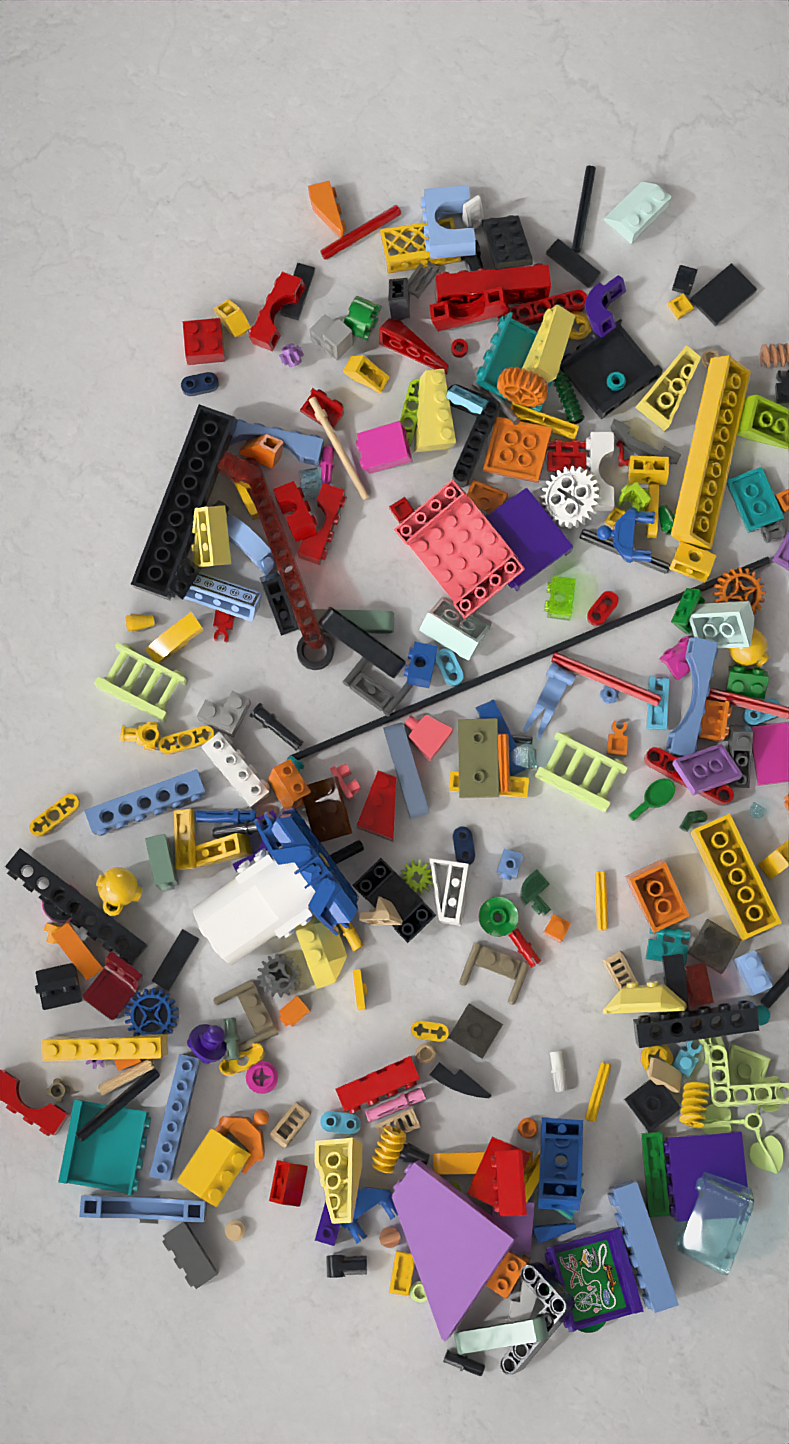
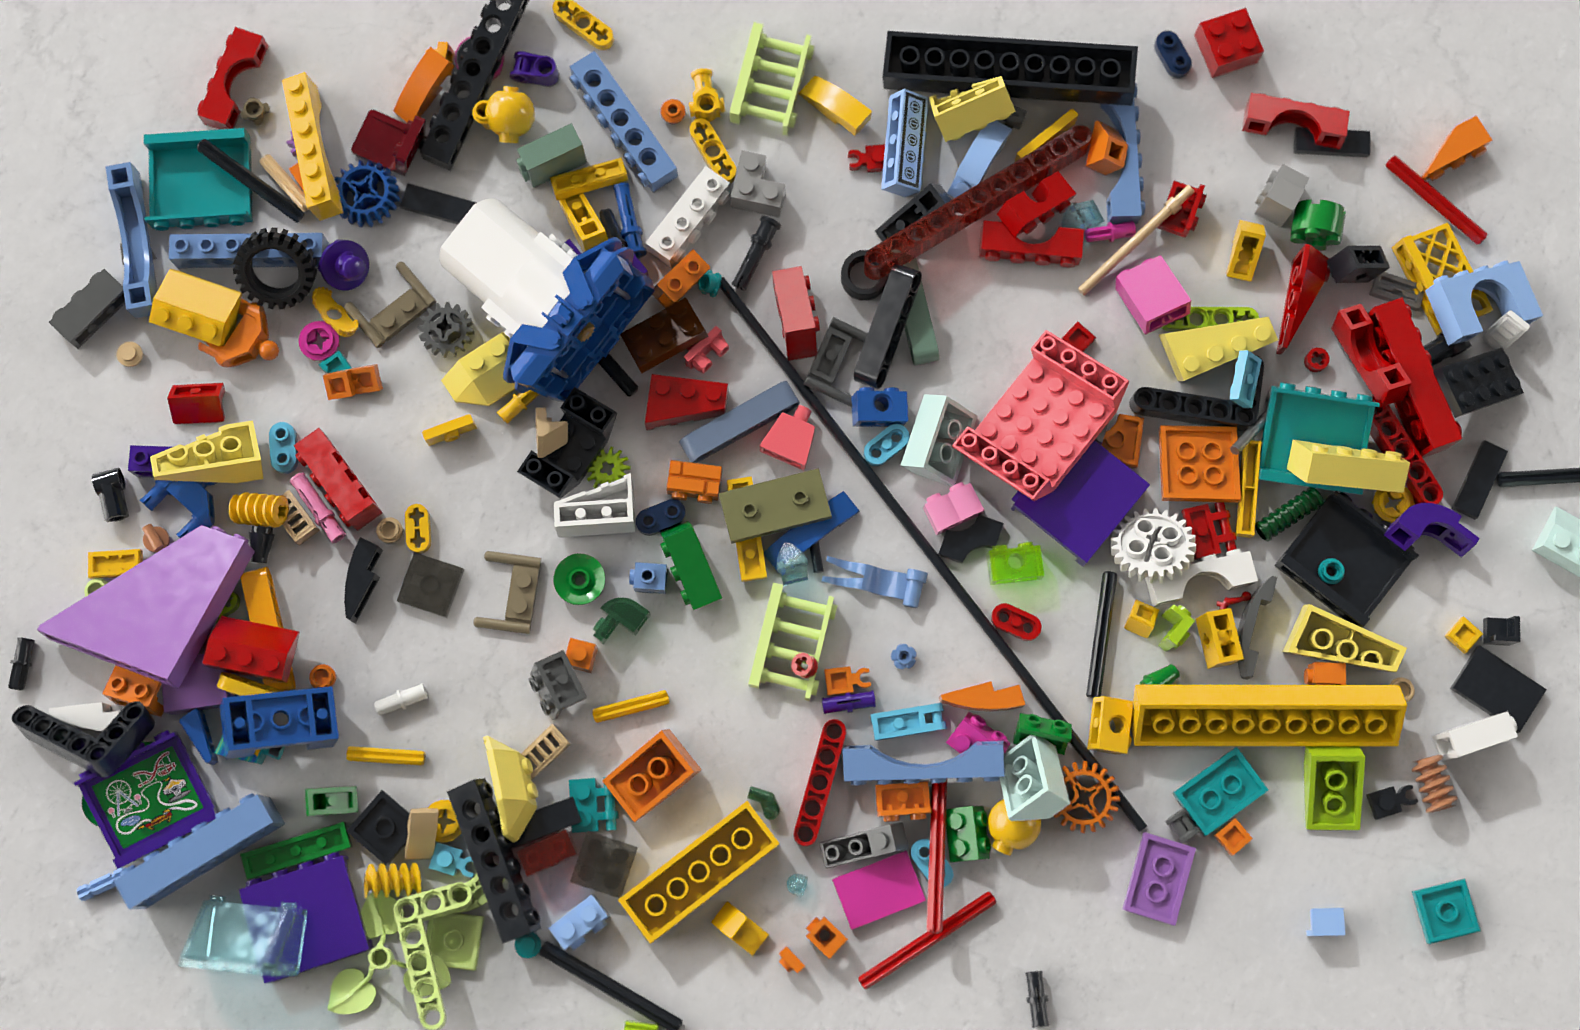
camera: 75 degrees right, 0 degrees up
(58, 986) = (376, 78): black bracket -> none
(82, 862) = (529, 69): none -> dark purple piece
(137, 622) = (846, 58): yellow cone -> none
(146, 769) = (675, 117): none -> orange plate
(183, 579) = (909, 88): black hinge -> none
(218, 1102) = (286, 244): none -> black tyre
(231, 1039) = (357, 293): sand green pin -> none
(232, 318) = (1269, 70): yellow slope -> none
(239, 471) = (1067, 121): clear red brick -> none
(279, 1127) = (255, 392): tan slope -> none
(284, 1067) = (335, 363): none -> teal tile
(291, 355) = (1242, 152): medium lavender gear -> none
(293, 1012) = (405, 358): orange brick -> none
(301, 1057) = (352, 382): none -> orange slope
(331, 707) = (796, 312): none -> wedge
(443, 814) = (694, 481): none -> orange brick
(501, 1335) = (55, 696): beam -> none
(503, 756) = (776, 538): orange axle -> none
(507, 831) = (690, 565): none -> green wedge
(509, 631) = (953, 508): none -> bright pink brick
(509, 1183) = (232, 656): red slope -> none
(522, 387) = (1281, 443): orange gear -> none
(524, 948) = (547, 622): red pin -> none
(531, 617) = (981, 534): none -> black tile
(577, 949) = (556, 684): none -> dark grey bracket
(603, 771) = (798, 669): none -> bush
(606, 679) = (921, 647): axle -> none
(624, 534) = (1122, 624): blue connector -> none
(625, 1138) = (331, 801): none -> green slope
(633, 754) = (830, 705): none -> dark purple pin
(648, 1329) = (98, 885): none -> light blue axle
(651, 529) = (1166, 657): yellow beam -> none
(653, 643) = (984, 698): none -> orange slope
(655, 796) = (783, 746): green piece -> none
(689, 405) = (1325, 673): none -> orange brick
(707, 769) = (831, 801): medium lavender plate -> none
(755, 318) = (1475, 735): none -> white brick

